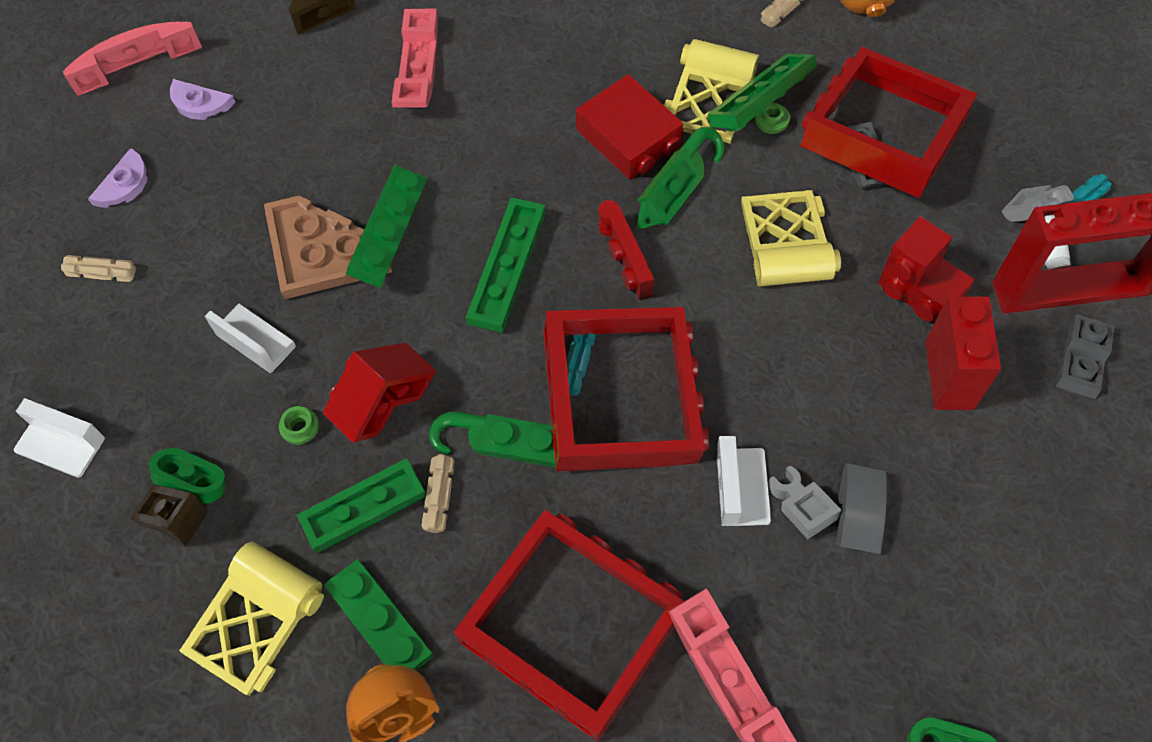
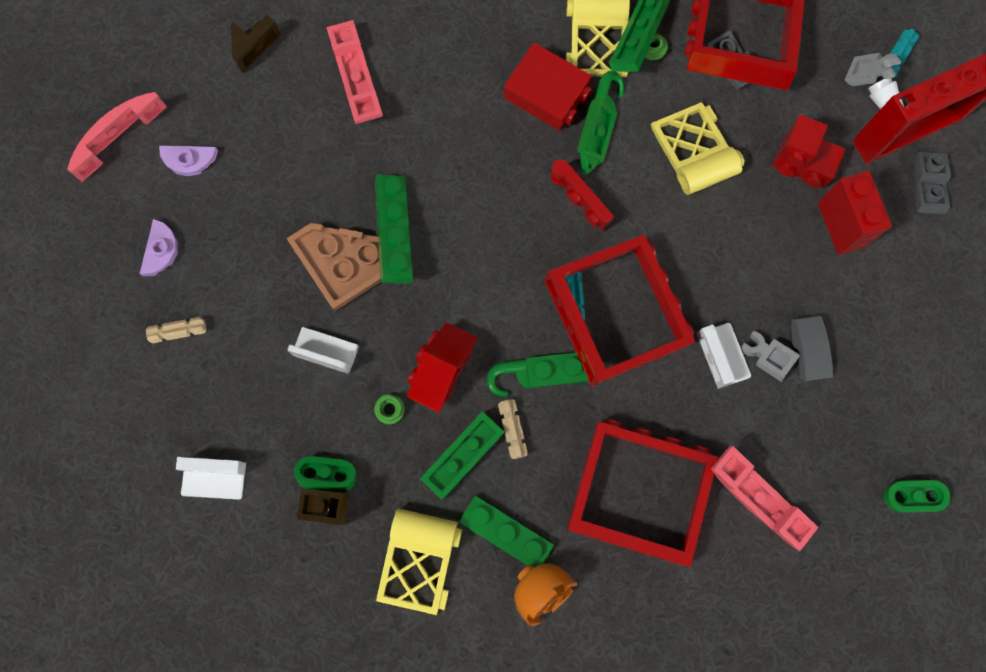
camera: 20 degrees left, 15 degrees up
(506, 265) = (495, 233): green plate -> none

